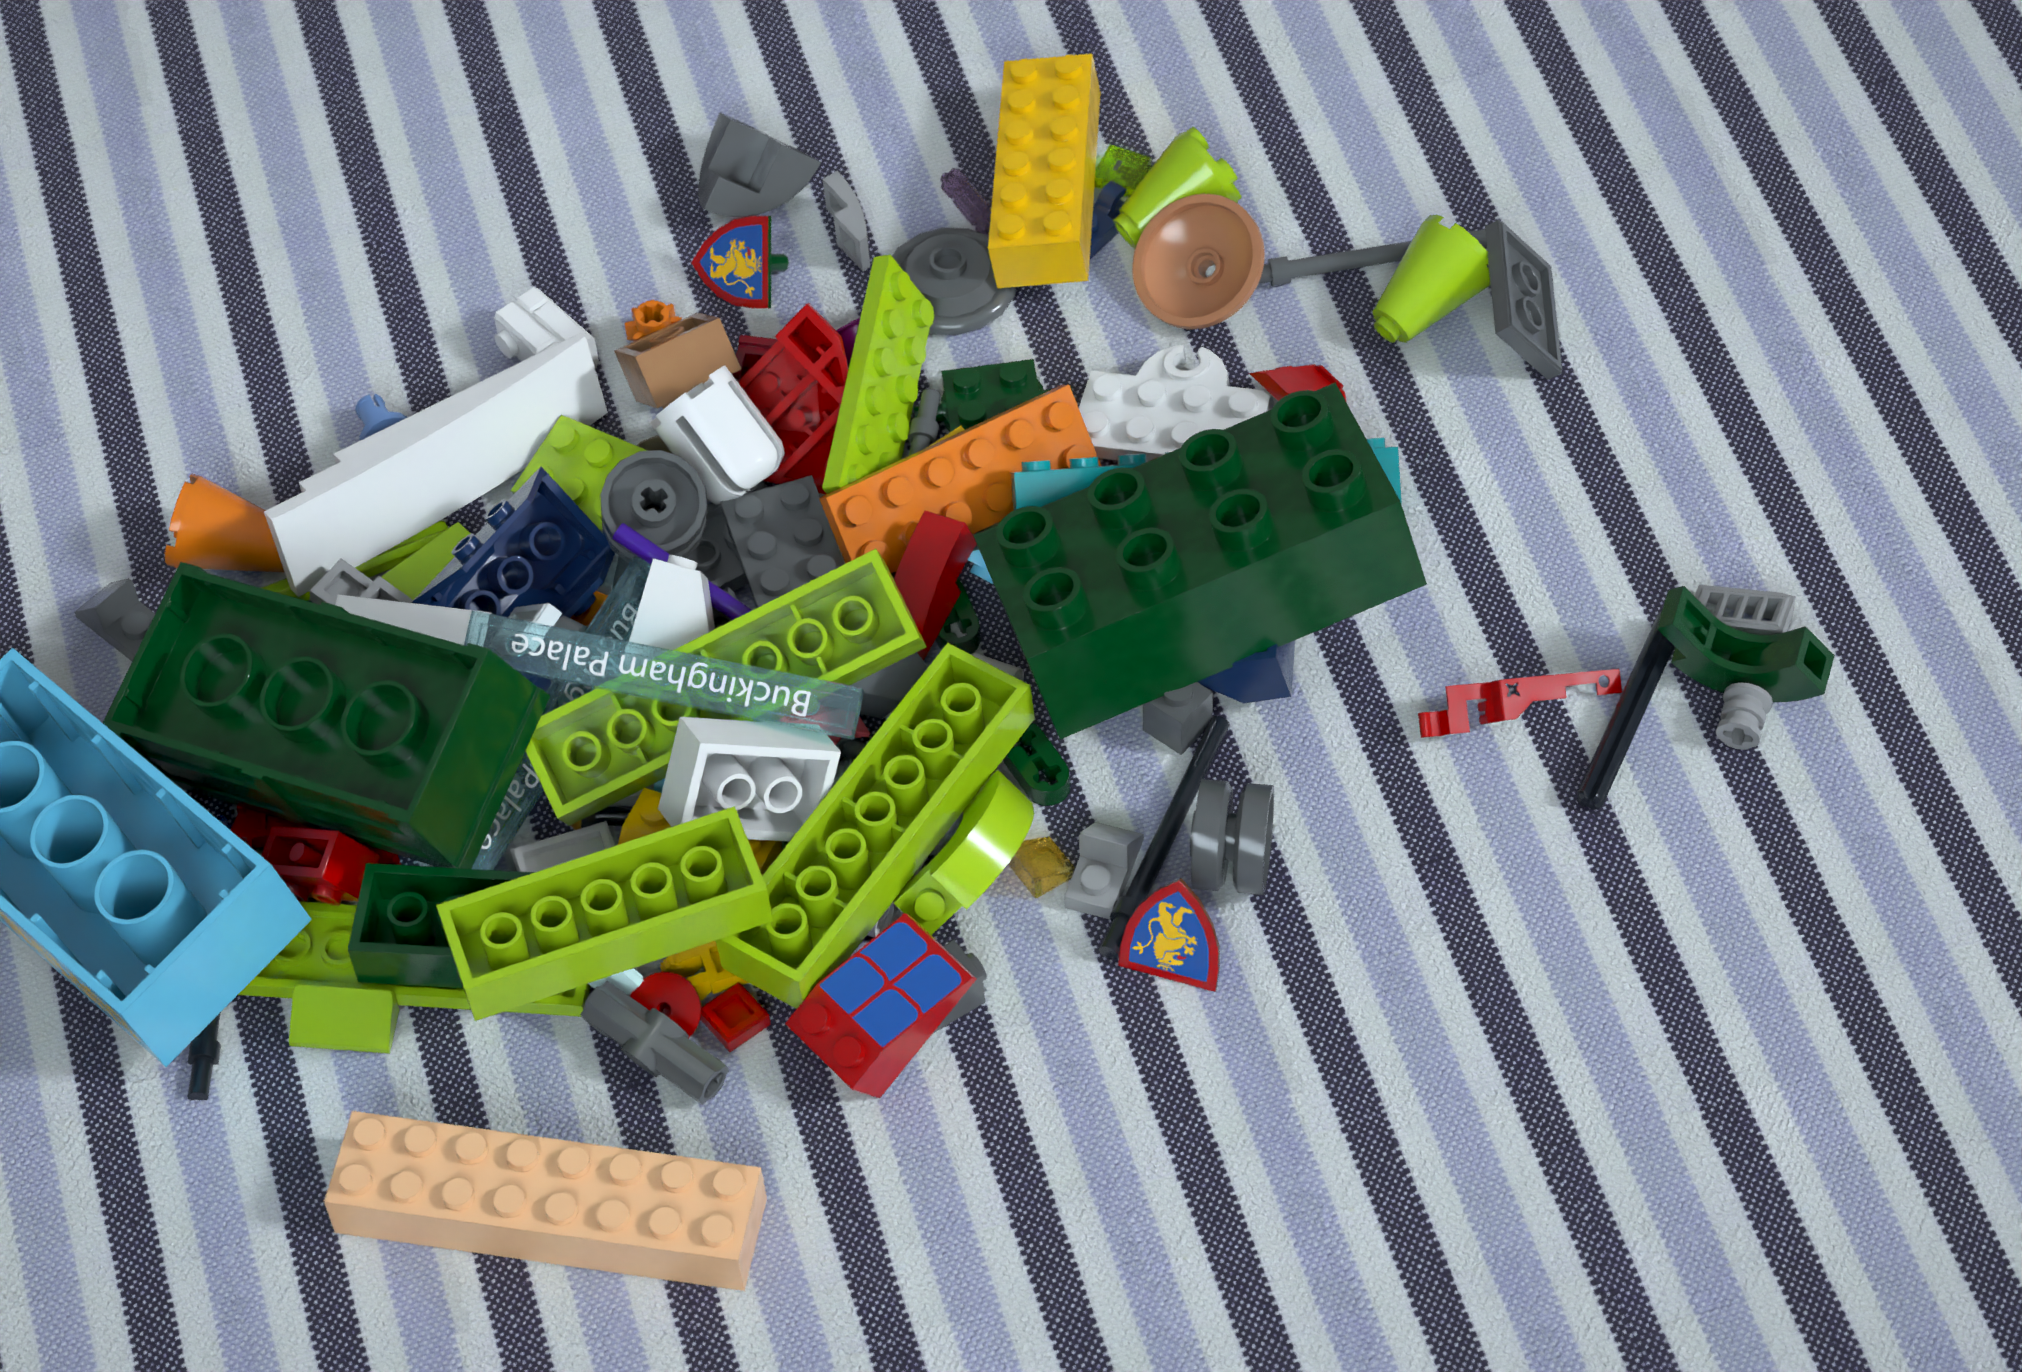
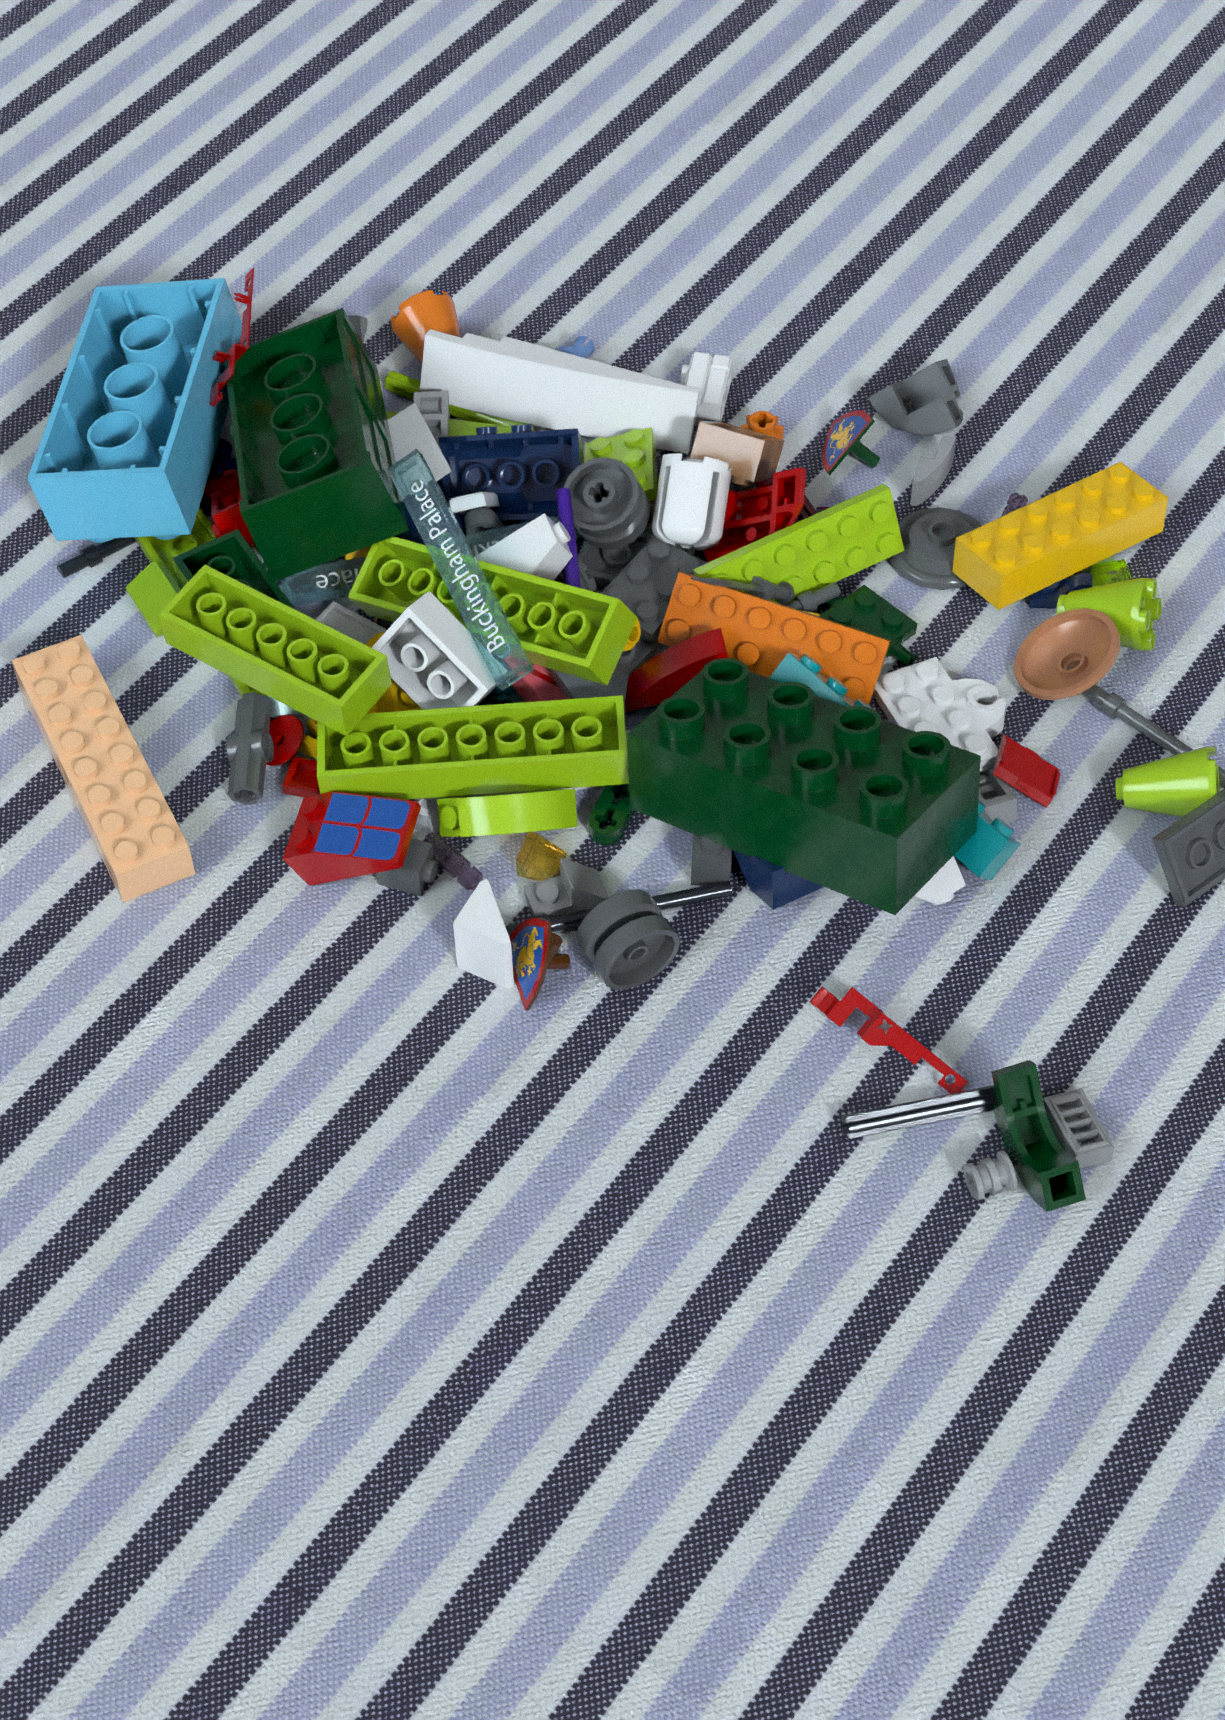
camera: 50 degrees right, 0 degrees up
(112, 680) = (236, 350): none -> red piece
(890, 450) = (759, 587): none -> dark grey sword
(984, 941) = (454, 862): none -> clear purple axle
(1122, 960) = (482, 938): none -> white slope

